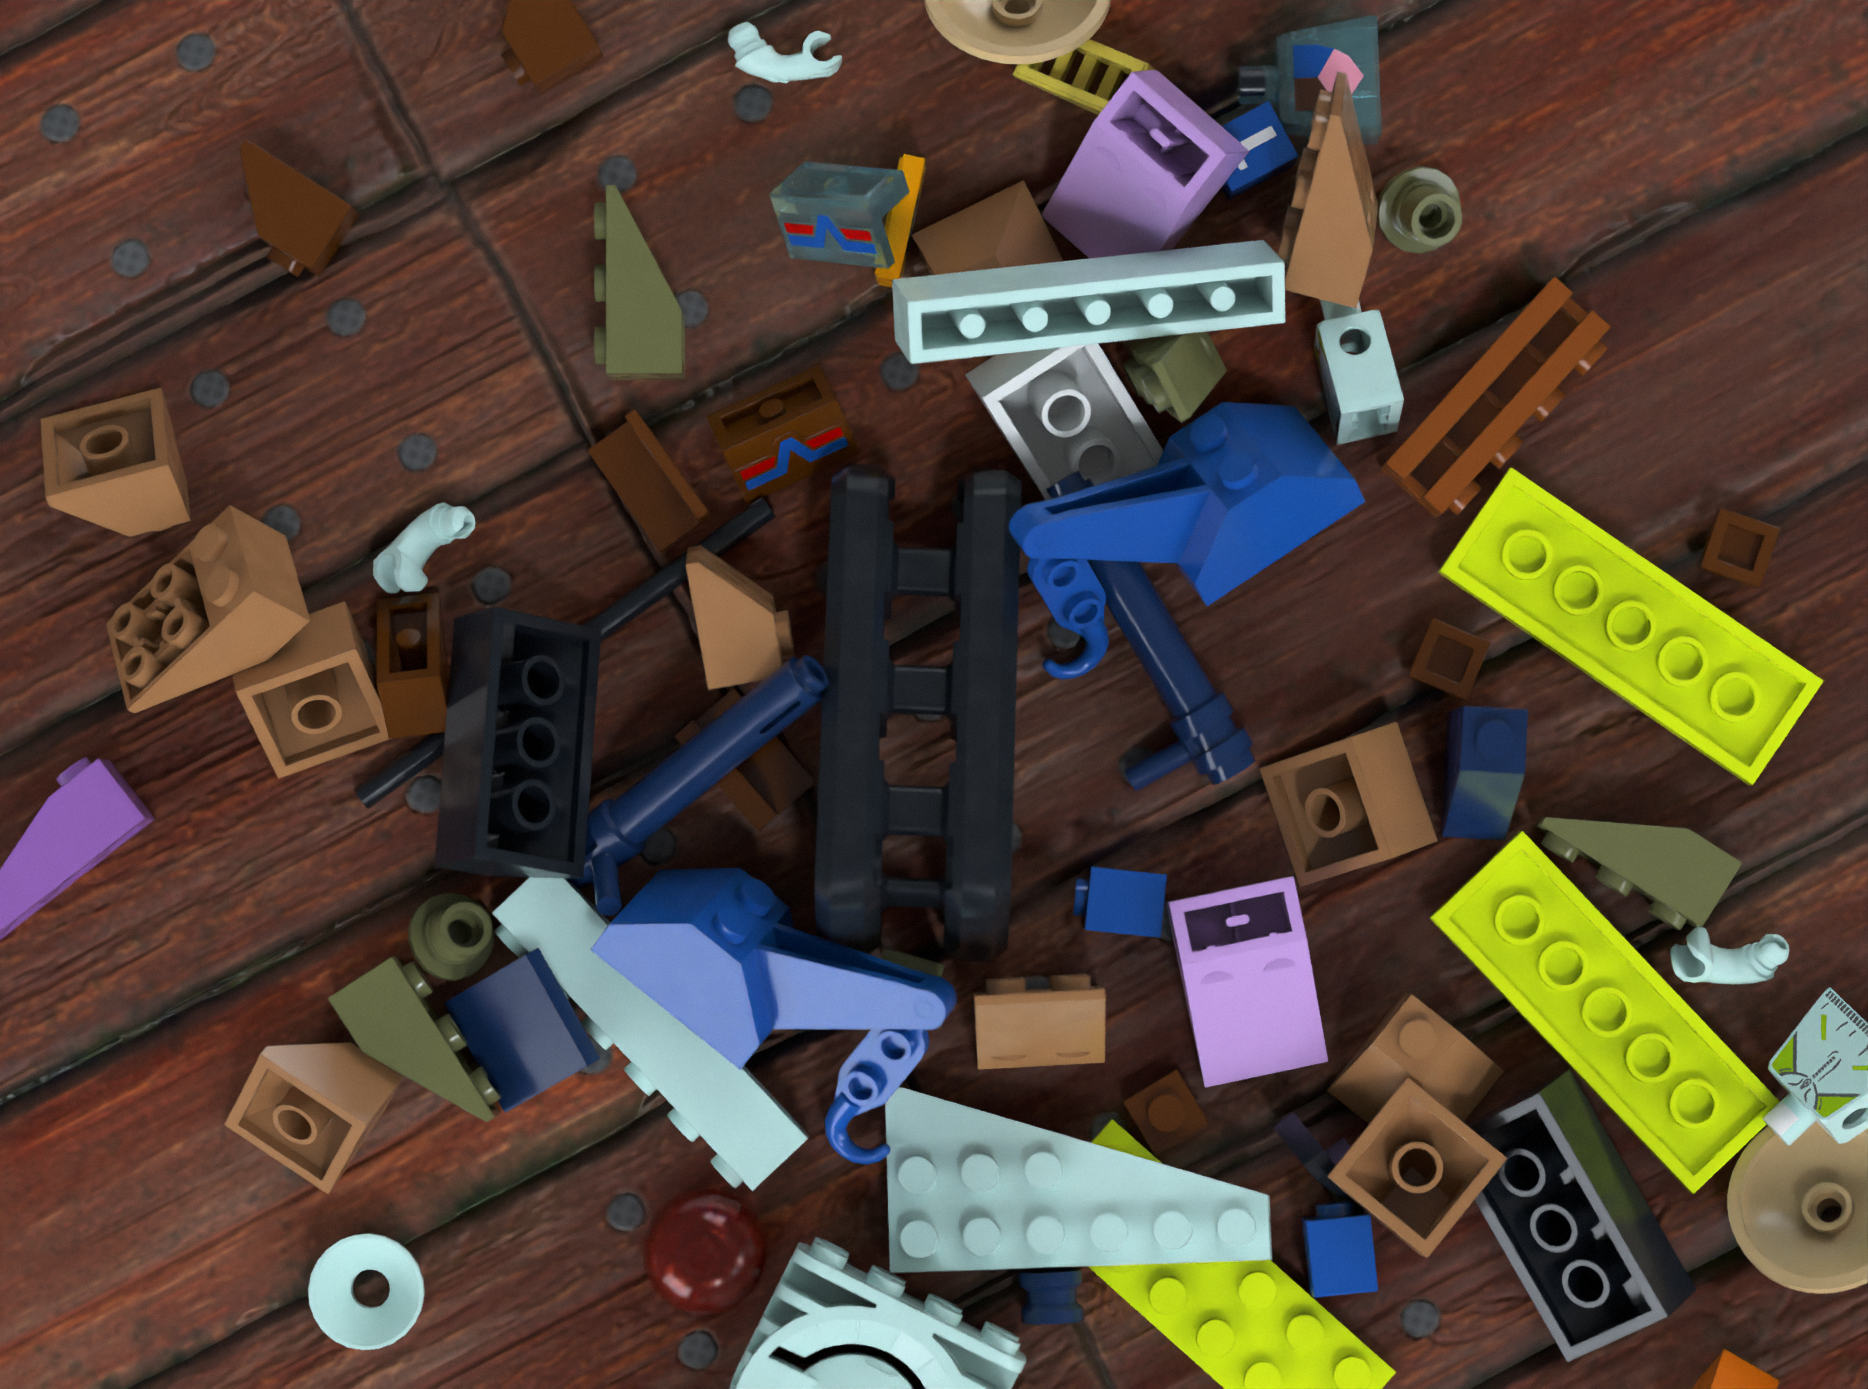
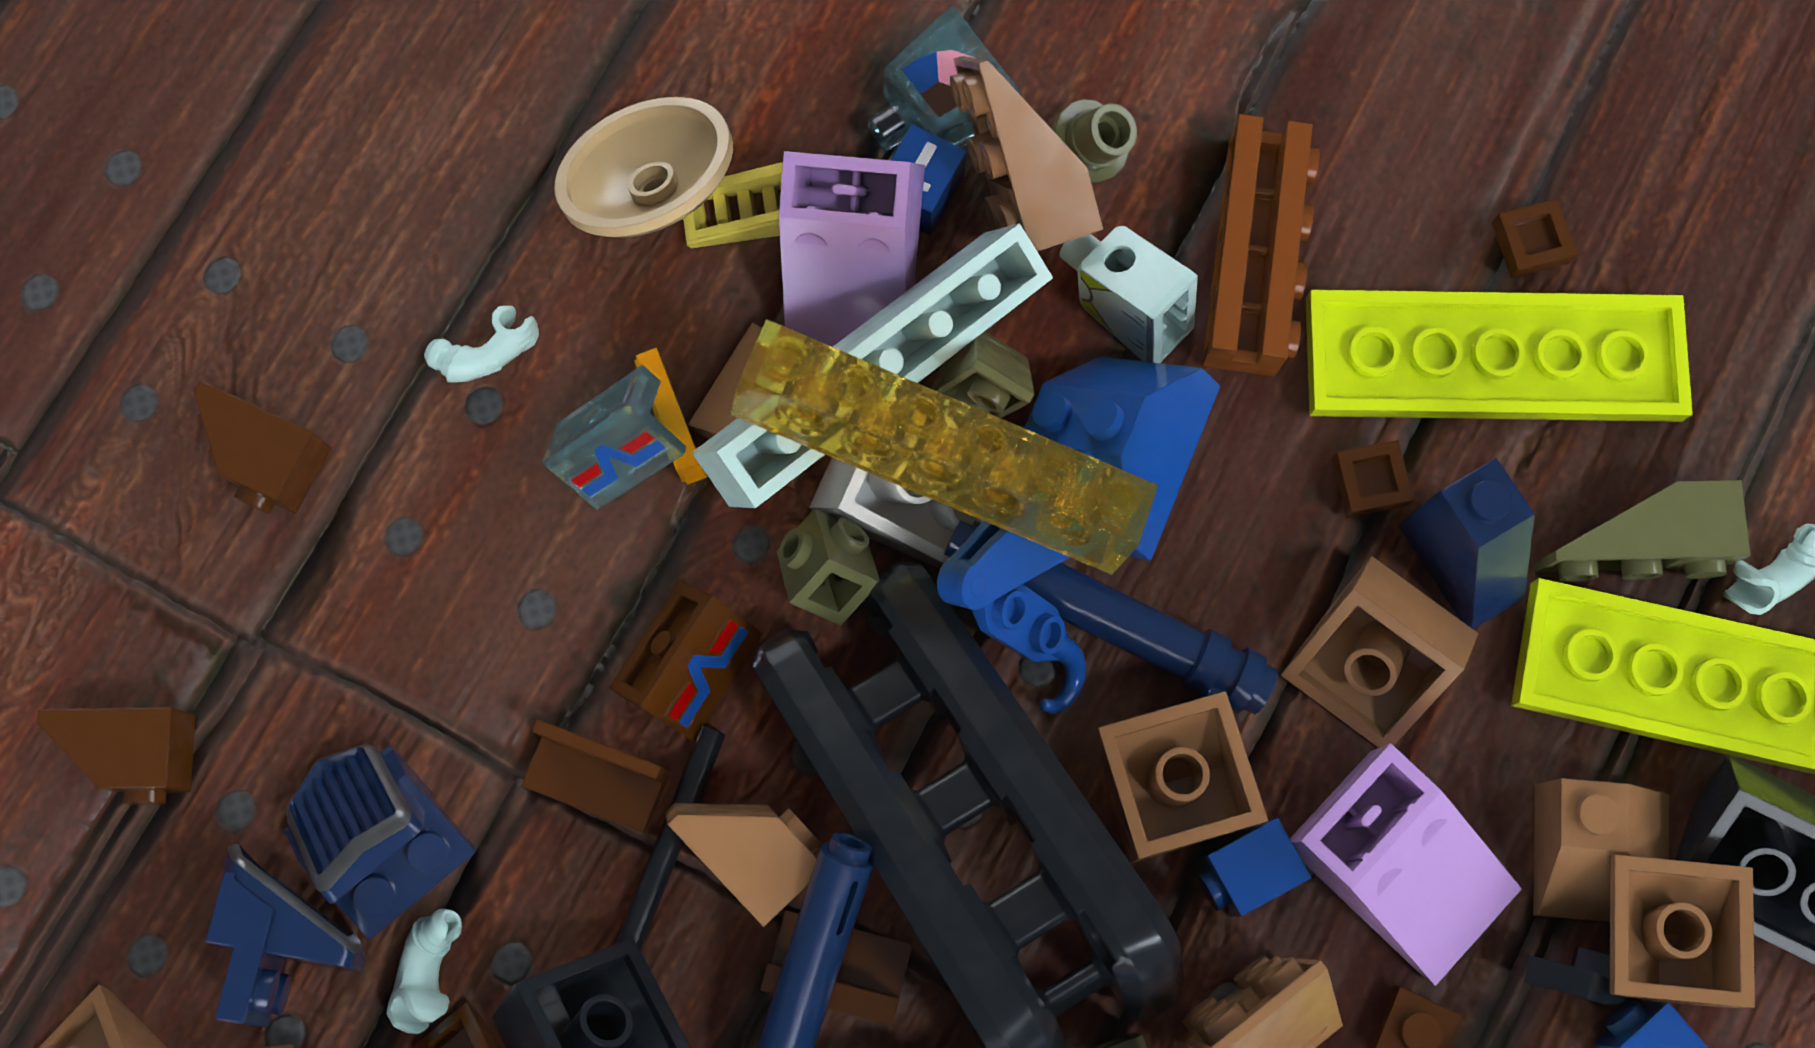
camera: 40 degrees left, 10 degrees down
(326, 434) = (265, 928): none -> dark blue piece
(446, 410) = (372, 835): none -> dark blue piece
(642, 315) = (497, 637): olive slope -> none
(945, 436) = (827, 566): none -> olive brick
(1083, 417) = (942, 448): none -> clear yellow brick
(1111, 791) = (1179, 777): none -> medium nougat slope

